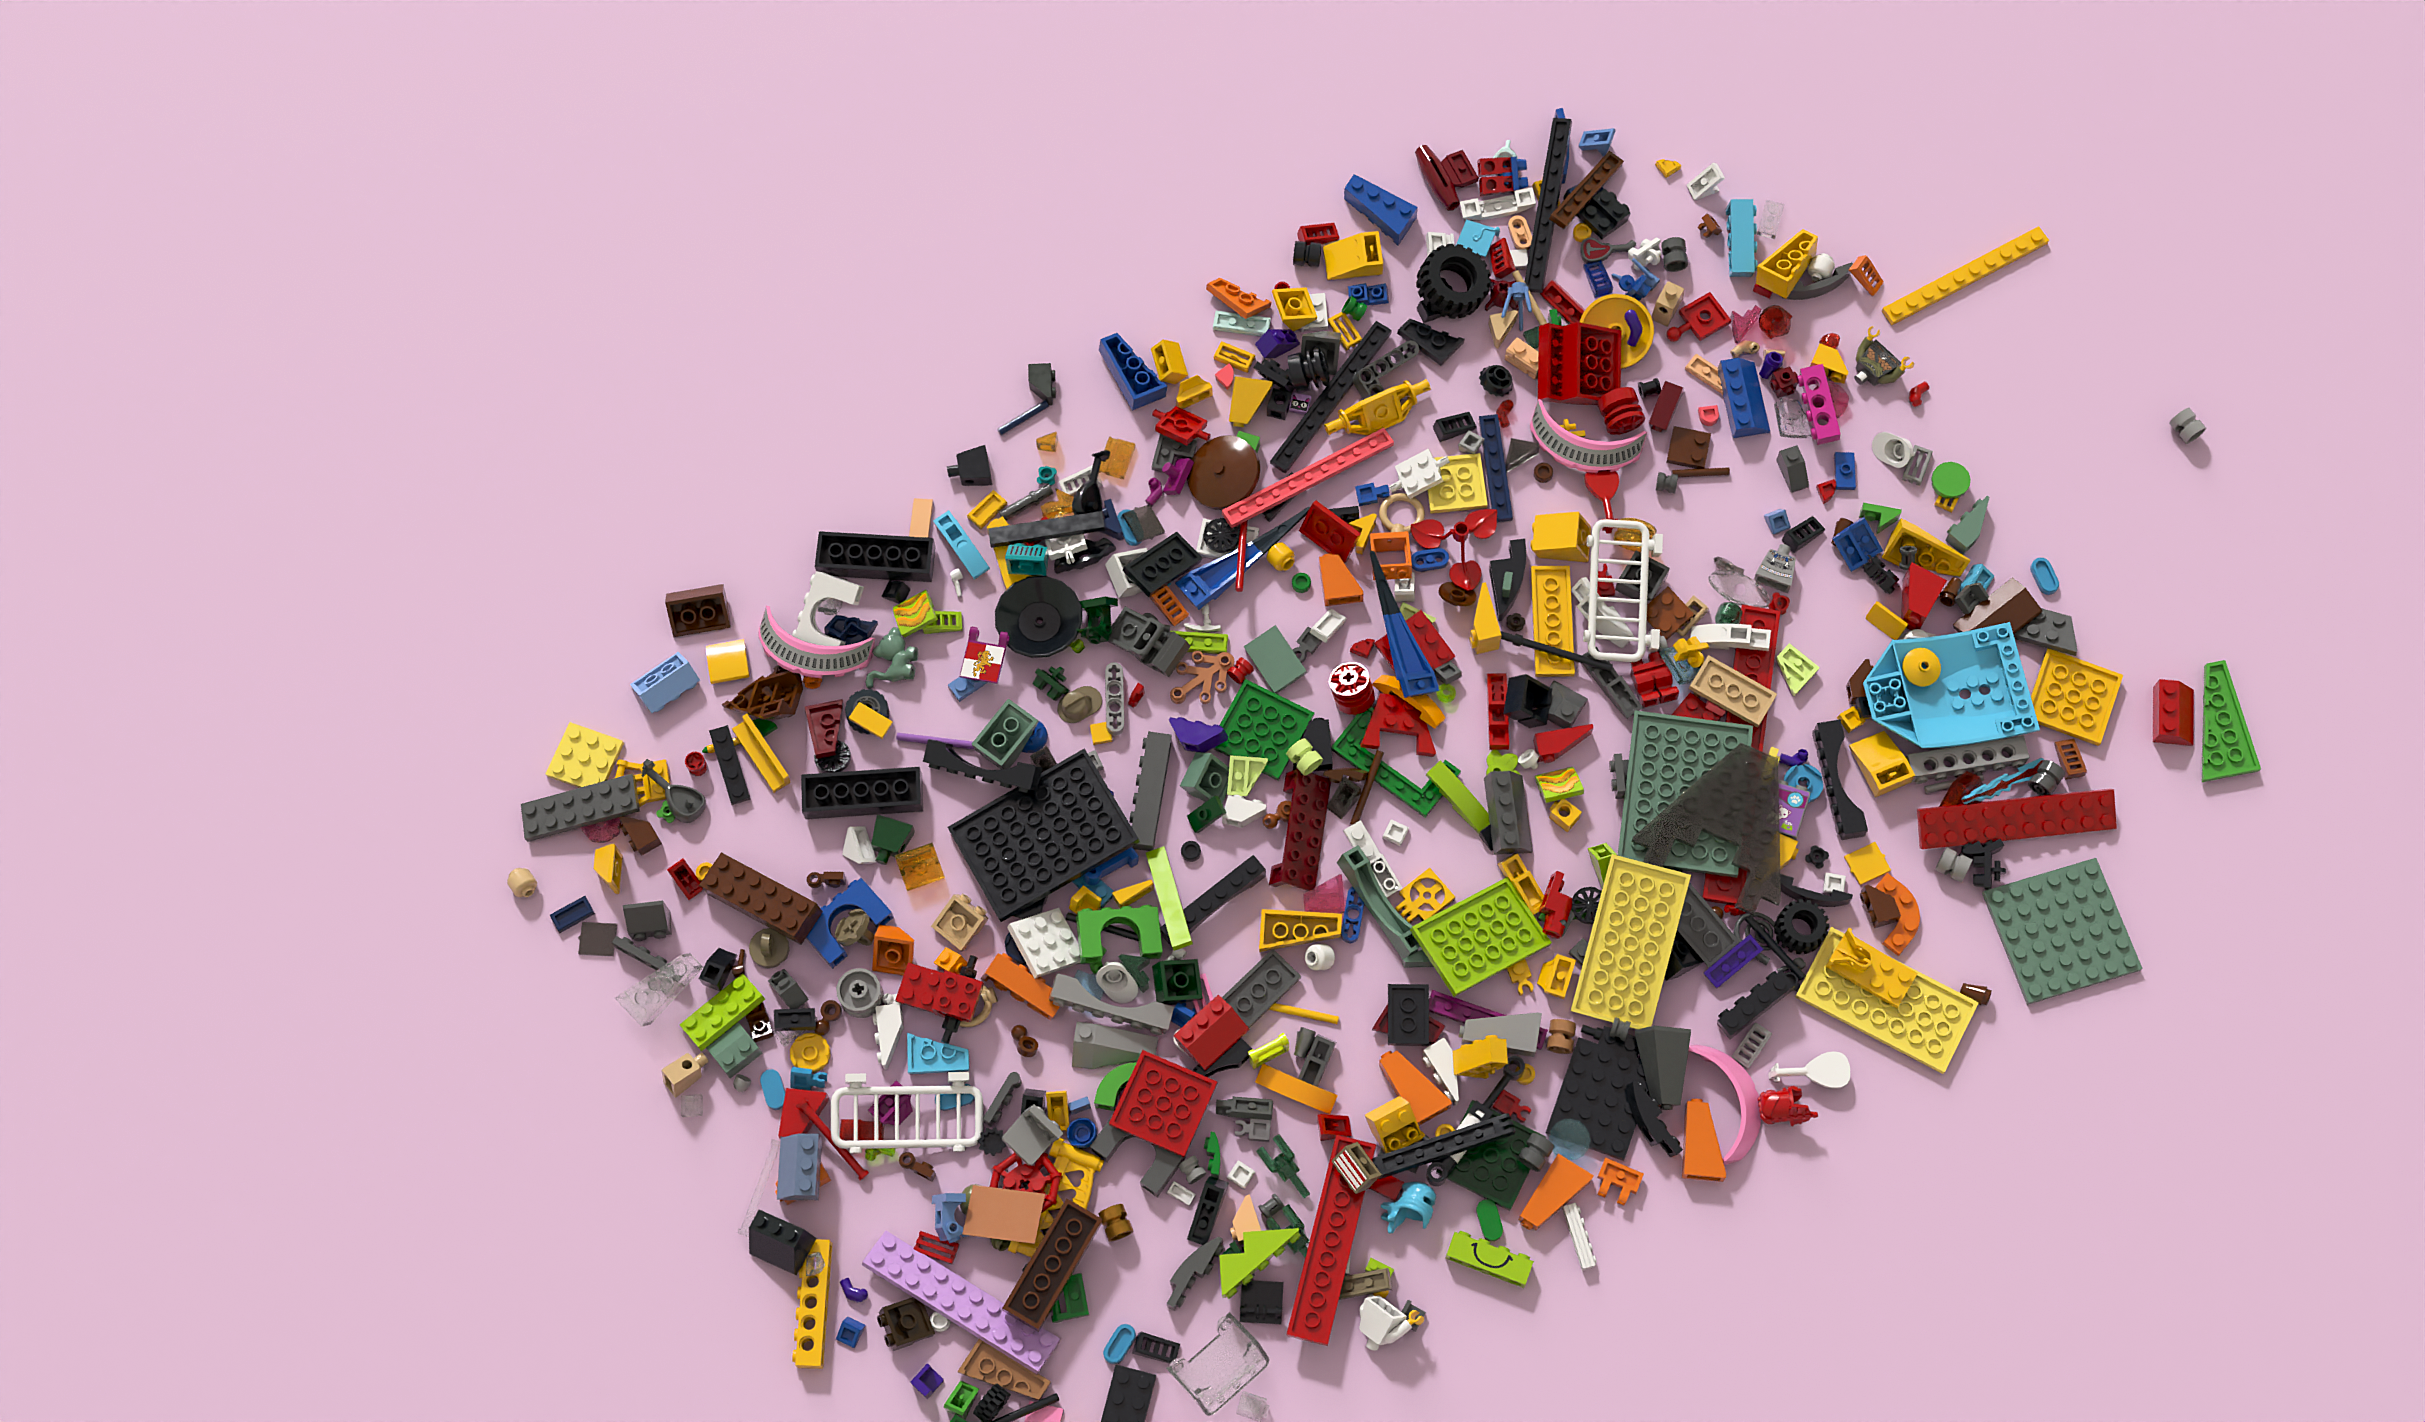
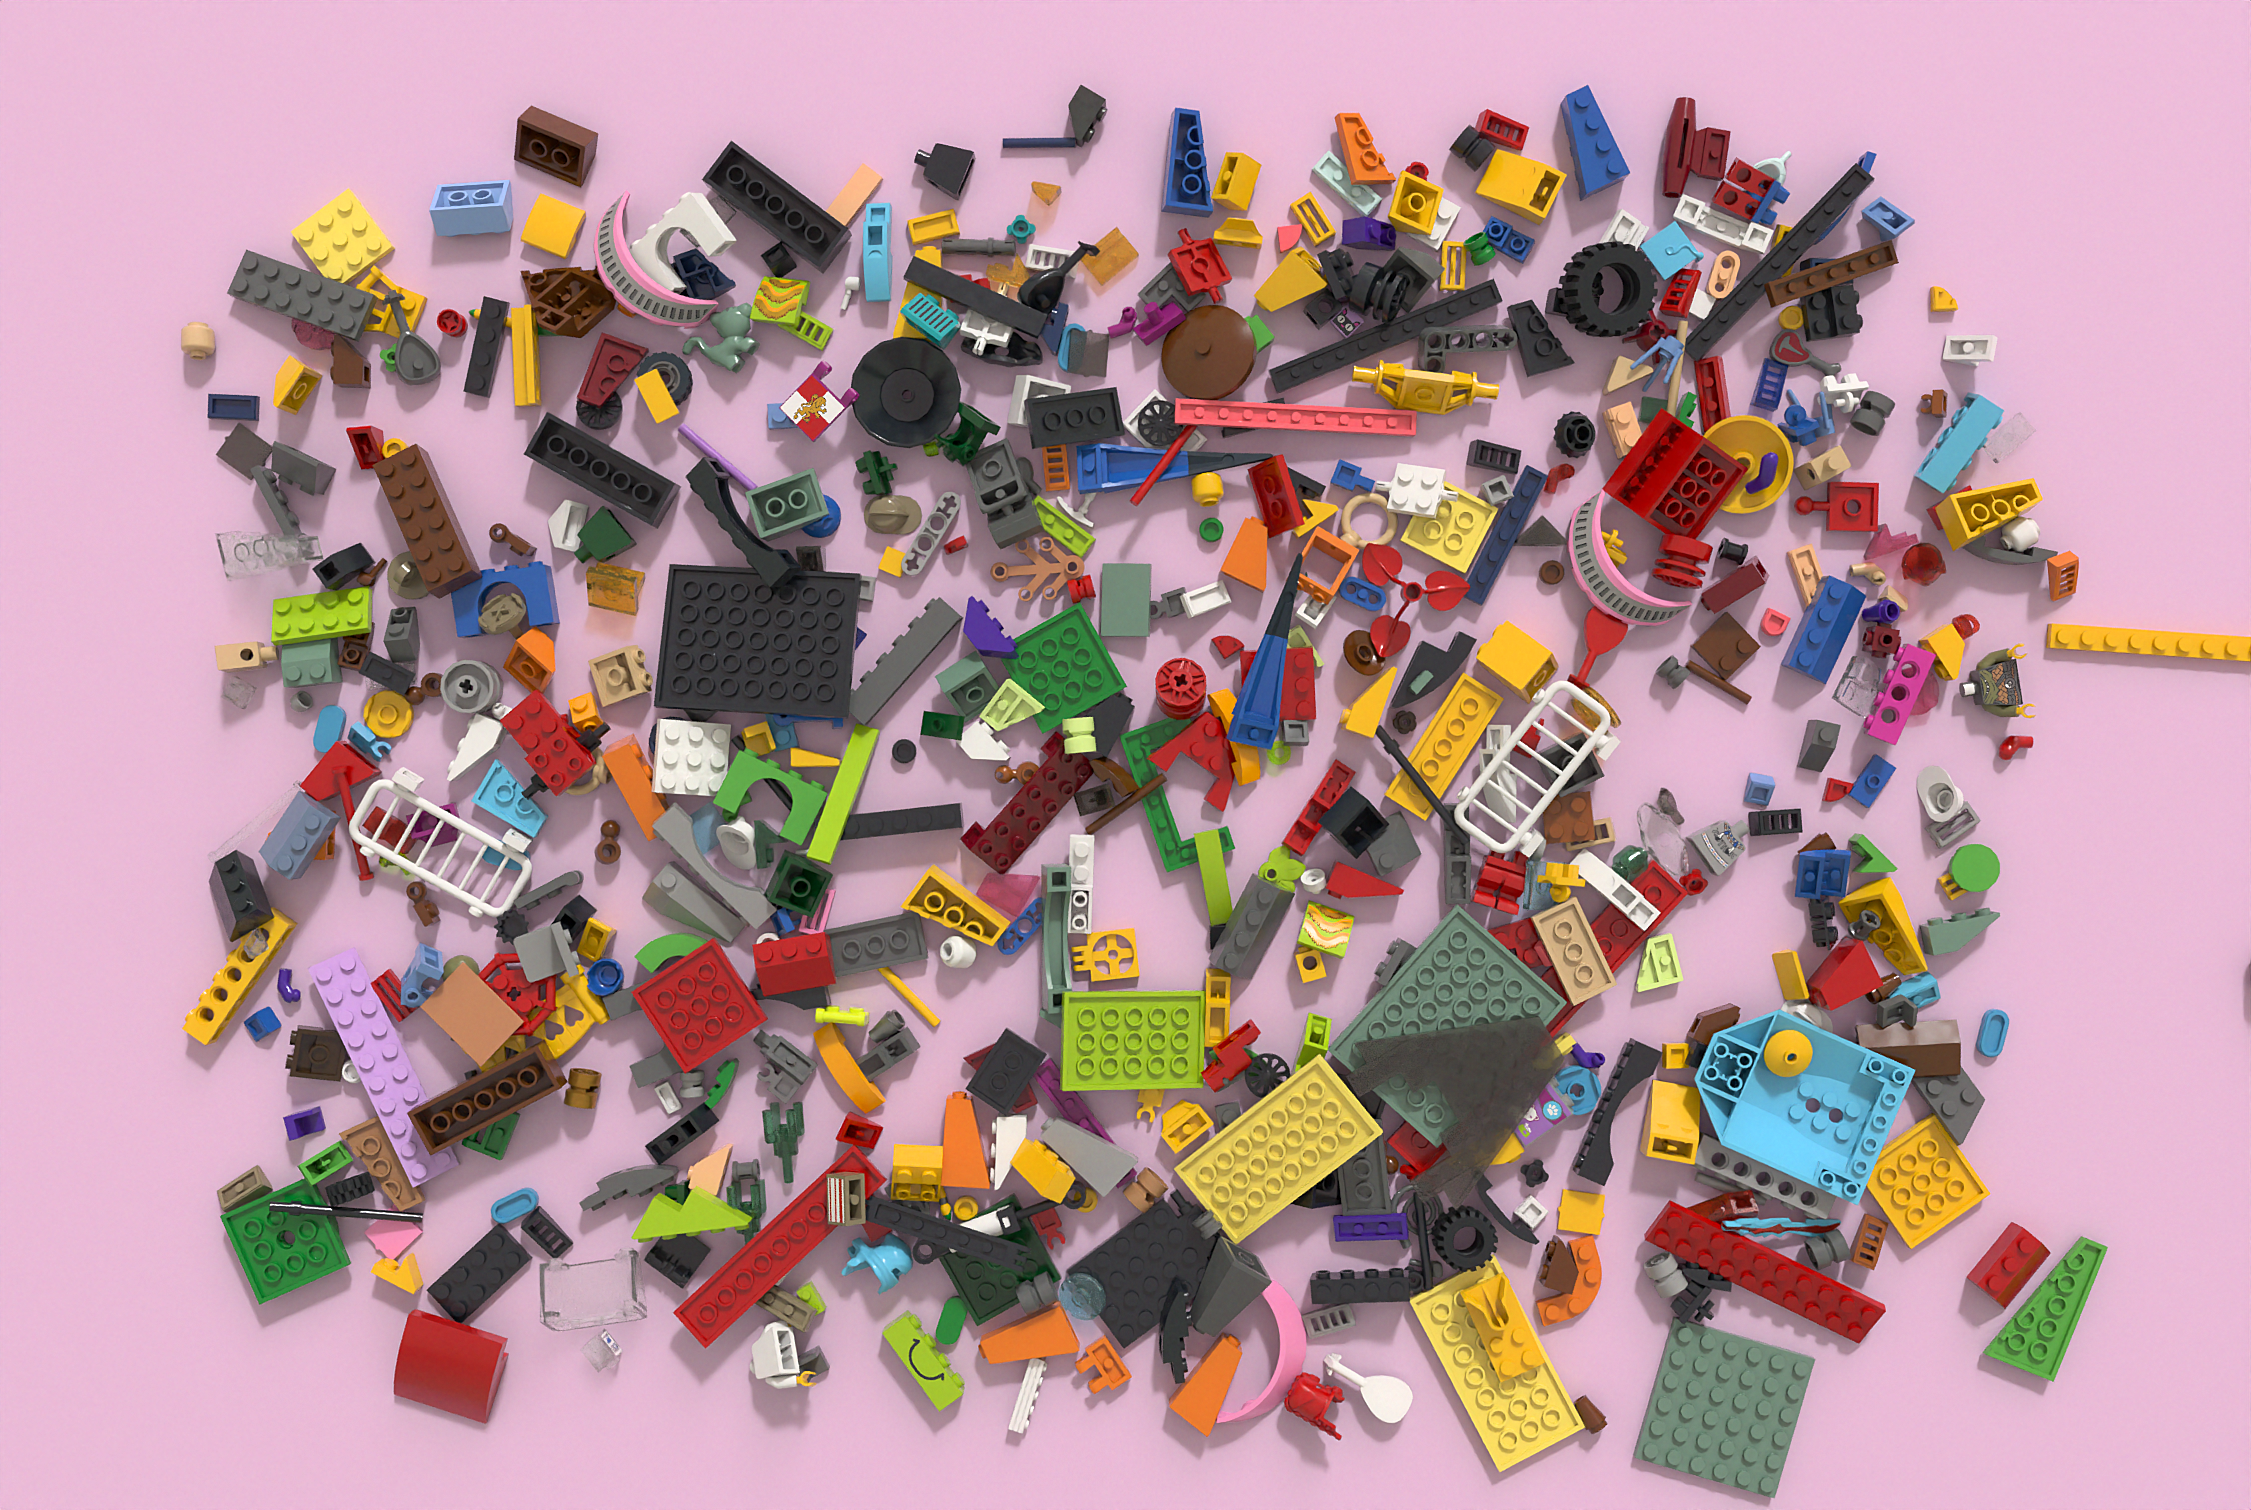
camera: 30 degrees right, 20 degrees up
(1079, 1105) = (621, 946): medium blue tile -> none
(1241, 1175) = (738, 1117): white tile -> none
(1395, 832) = (1125, 867): white tile -> none

